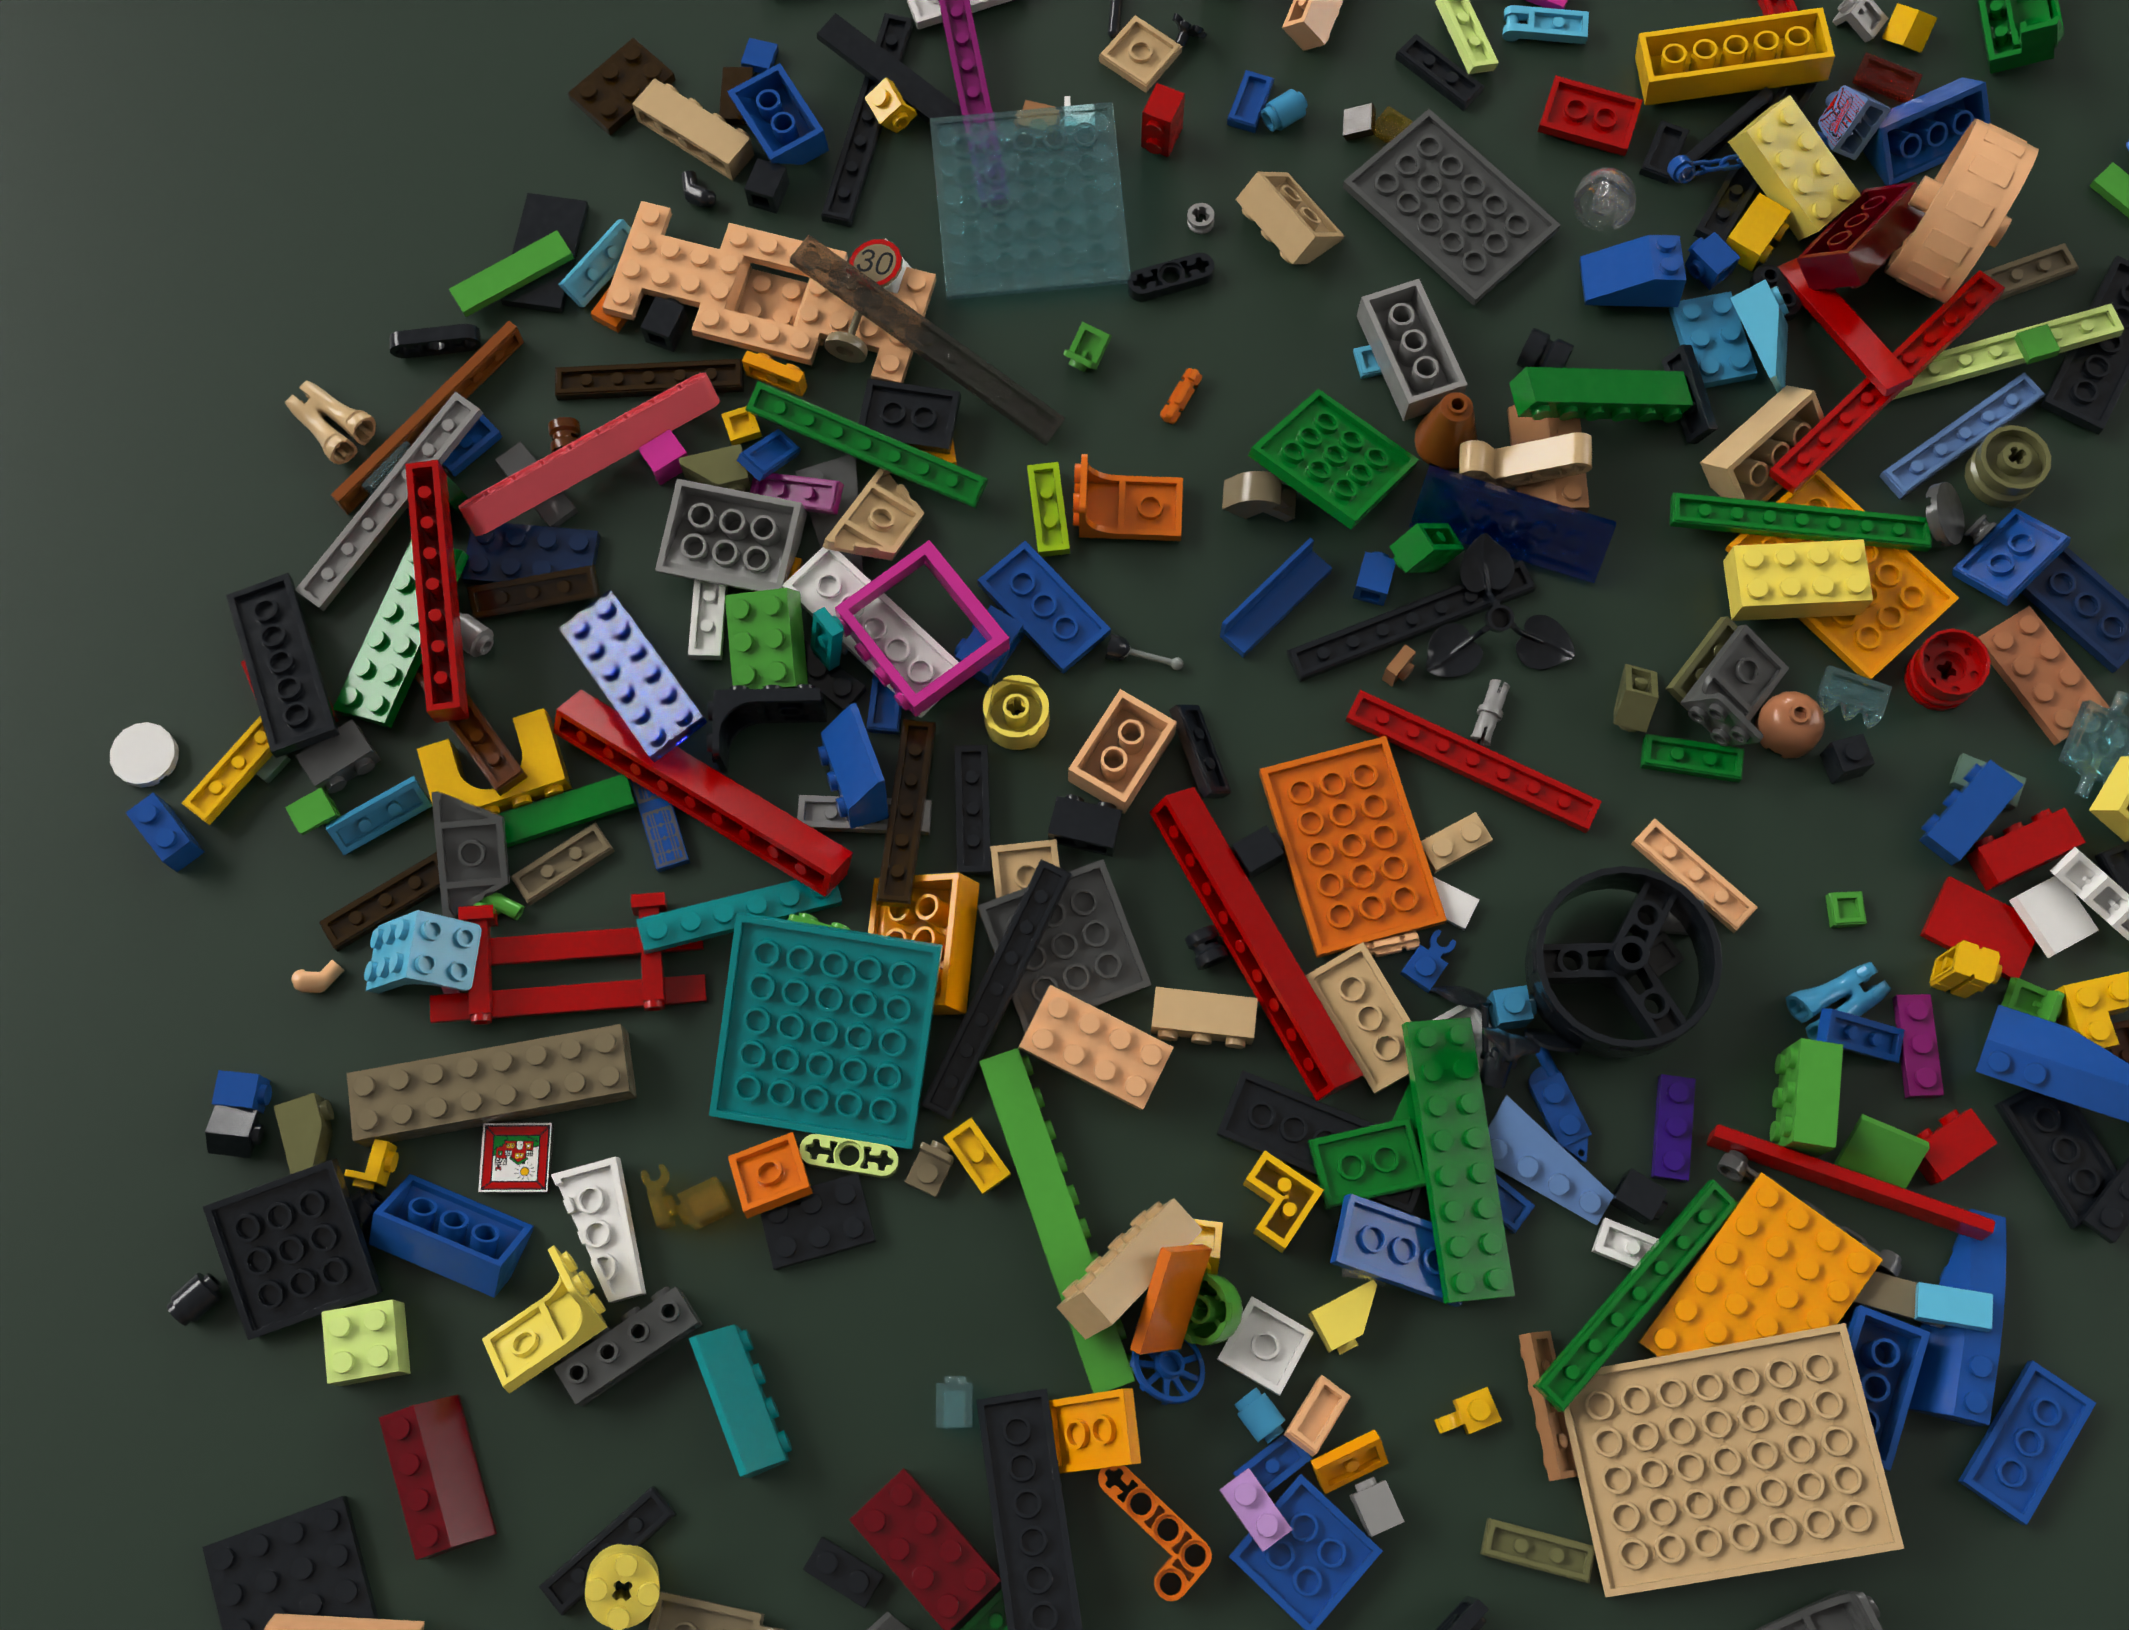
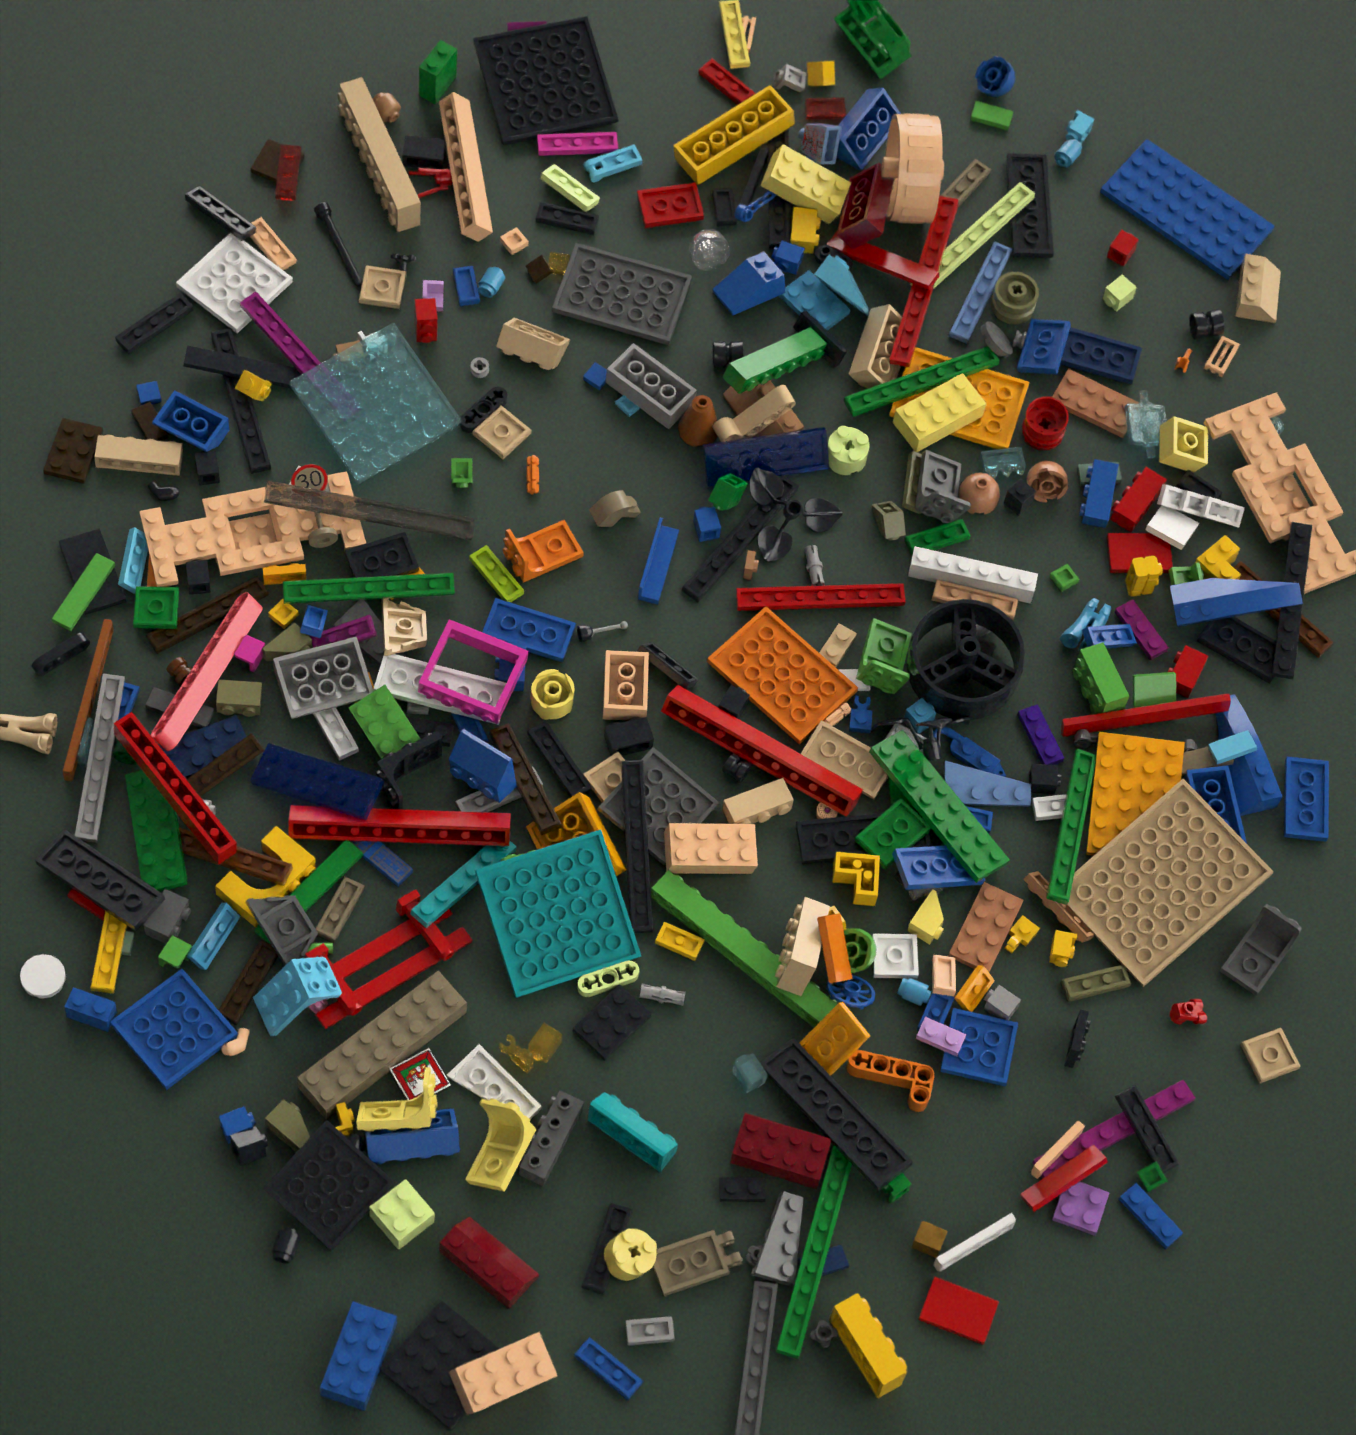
camera: 40 degrees left, 10 degrees down
(182, 1514) = (358, 1356): none -> blue brick
(251, 915) = (174, 1029): none -> blue plate
(446, 1197) = (401, 1114): none -> light yellow bracket
(587, 338) = (156, 607): none -> green tile
(614, 510) = (239, 697): none -> olive brick
(769, 1175) = (572, 1008): orange plate -> none
(827, 638) = (421, 704): teal plate -> none
(907, 1220) = (662, 994): none -> light grey pin
(930, 1168) = (657, 960): dark tan bracket -> none
(1176, 319) = (501, 432): none -> tan tile
(1198, 91) = (434, 289): none -> lavender panel
(1292, 1079) = (824, 812): none -> light nougat tile
(1333, 458) = (645, 467): green plate -> none
(1347, 301) = (596, 376): none -> blue tile
(1348, 69) = (514, 241): none -> light nougat plate
(1423, 1375) = (986, 927): none -> nougat plate
(1510, 895) = (884, 657): none -> bright green bracket
(1515, 1472) = (1062, 948): none -> yellow brick
(1634, 570) = (847, 450): none -> yellowish green brick
(1712, 839) = (972, 573): none -> white brick
(1902, 755) = (1048, 480): none -> nougat cylinder
(2037, 344) = (993, 223): bright green tile -> none

